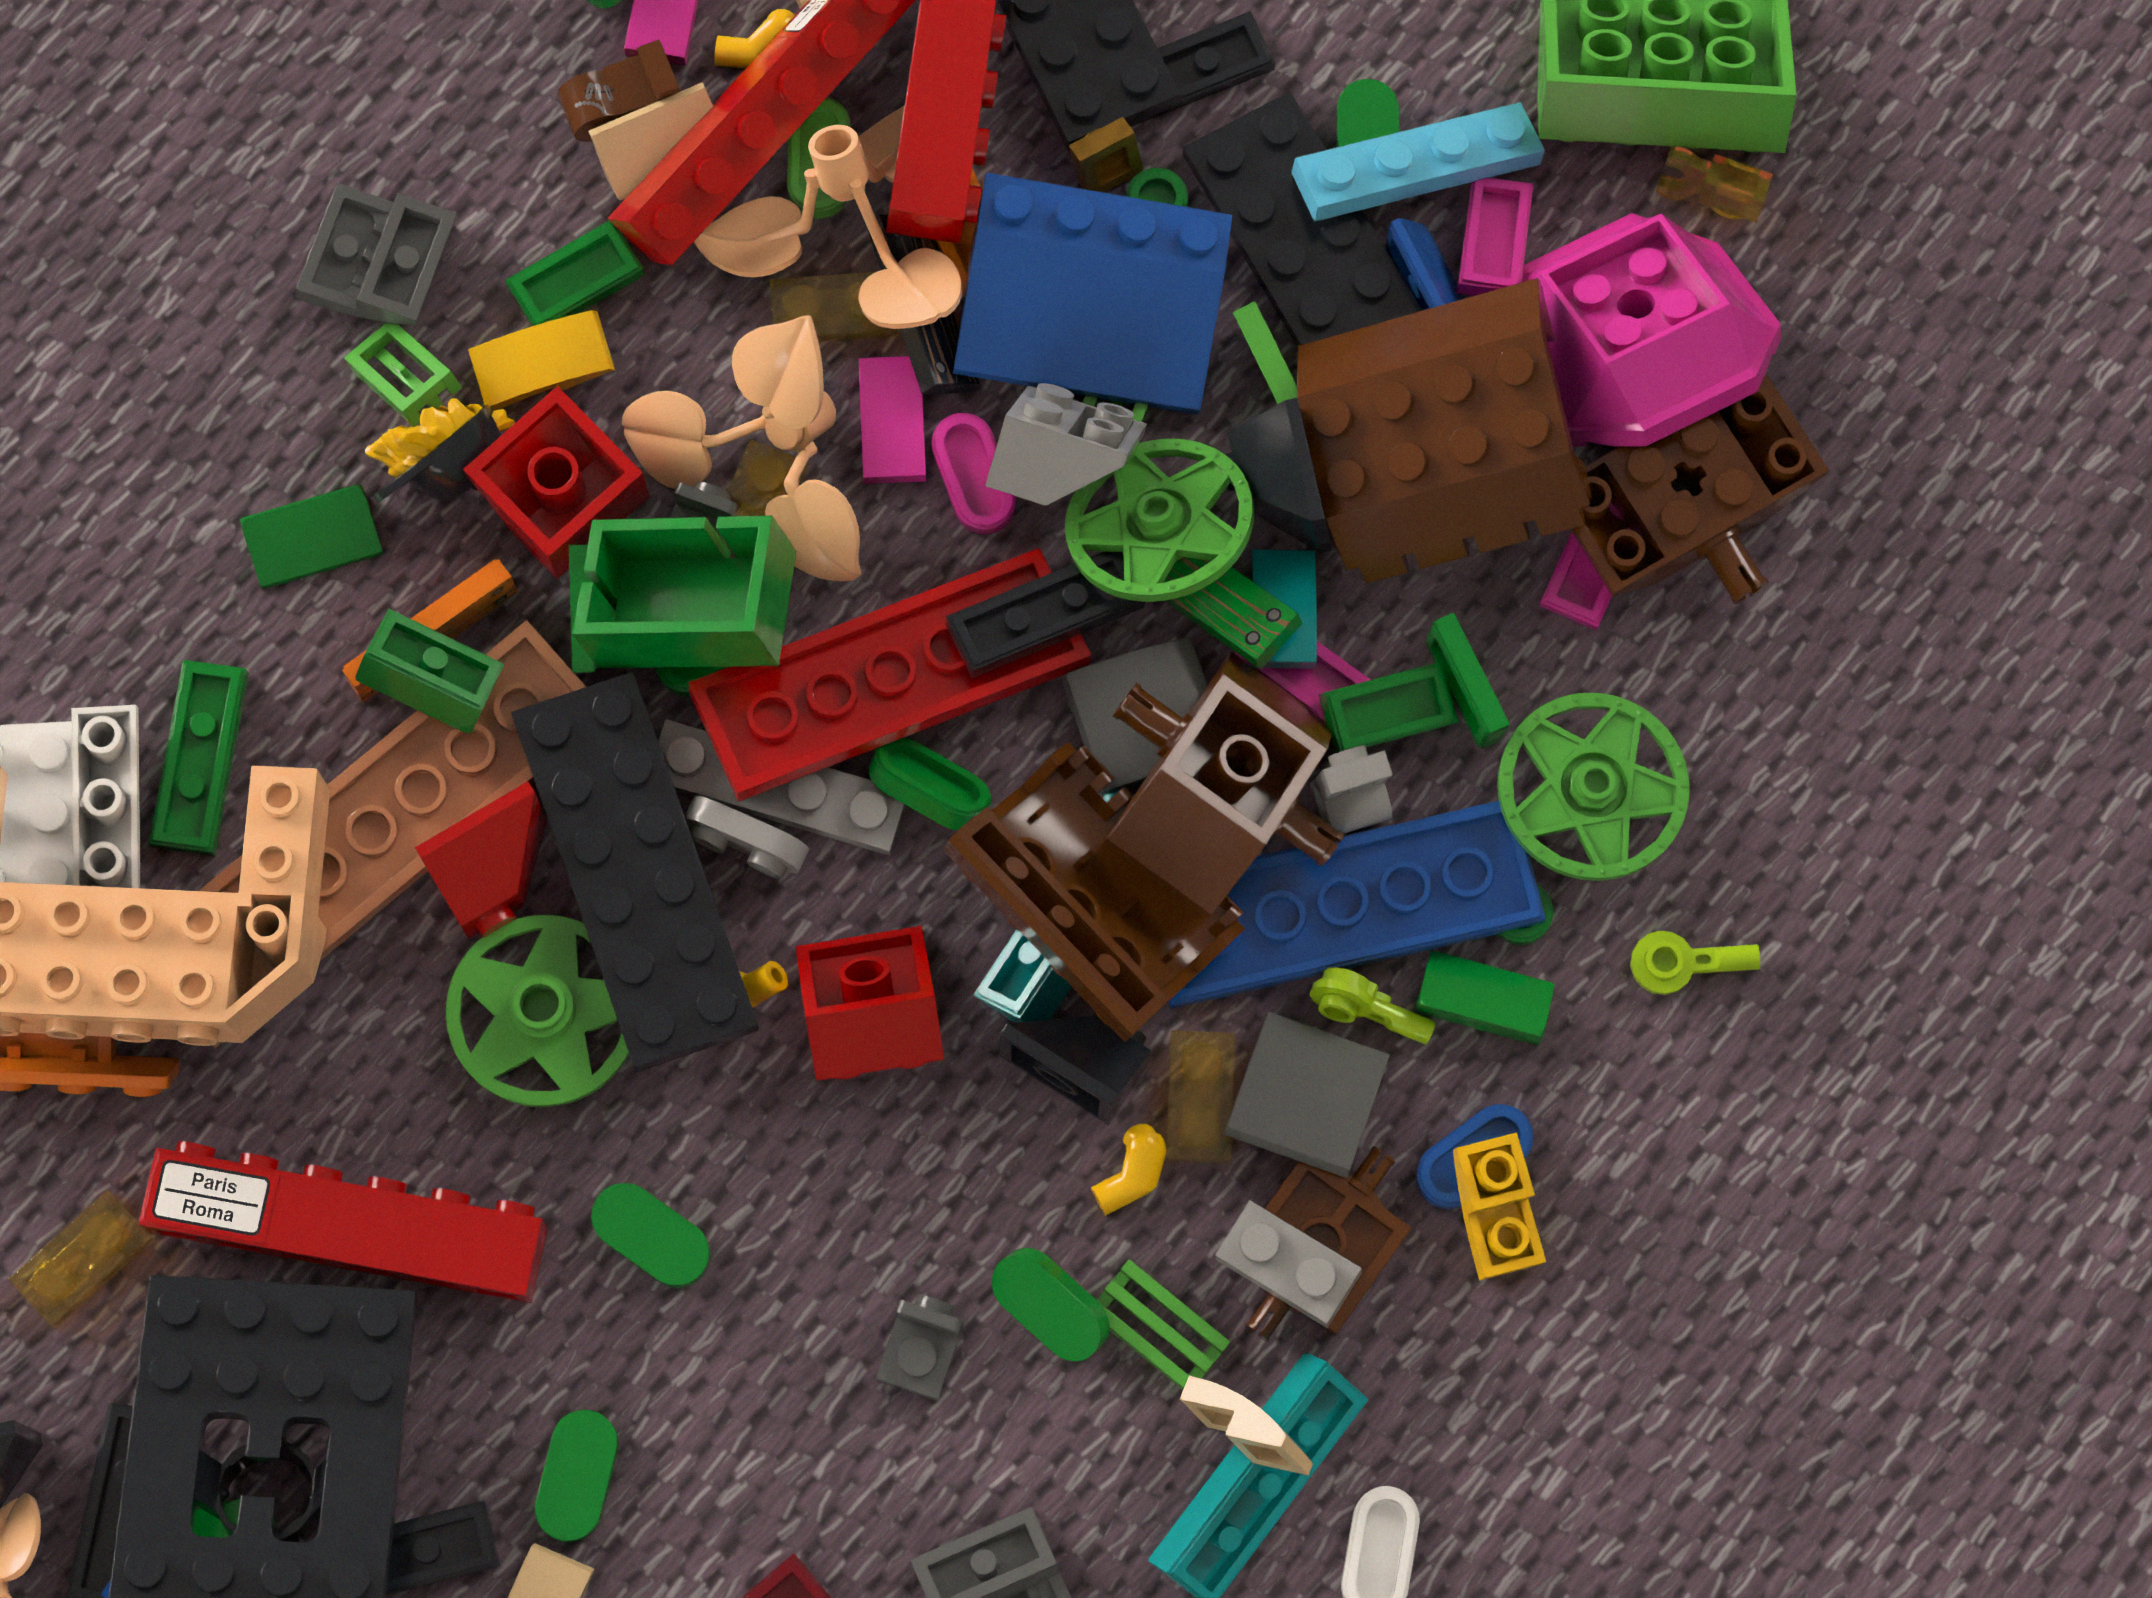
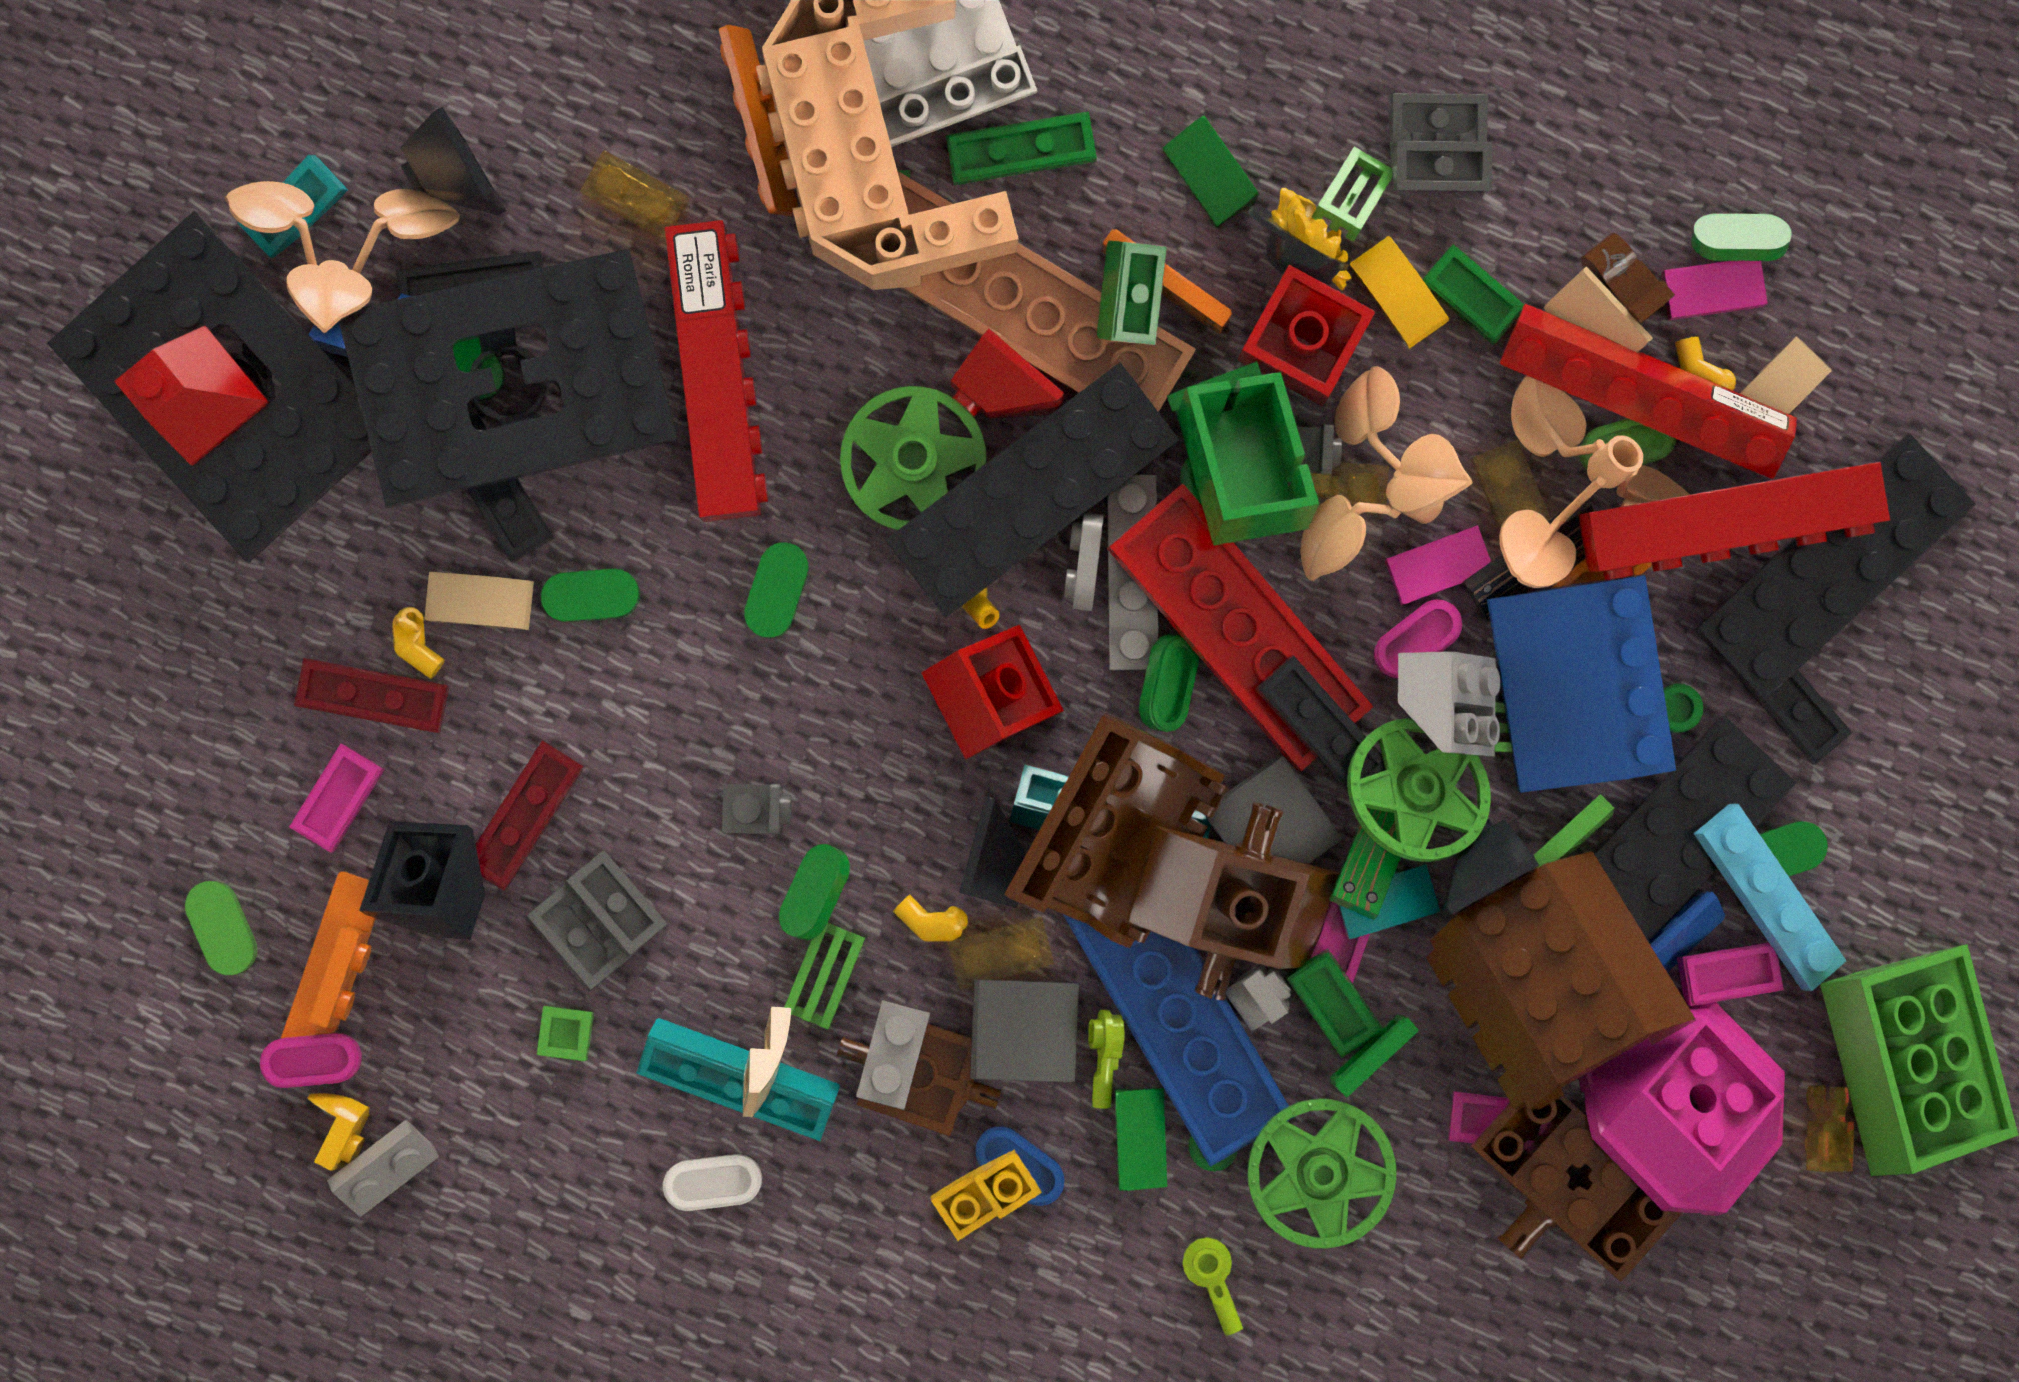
camera: 75 degrees right, 10 degrees up
(1106, 157) = (1695, 660): pearl gold plate -> none

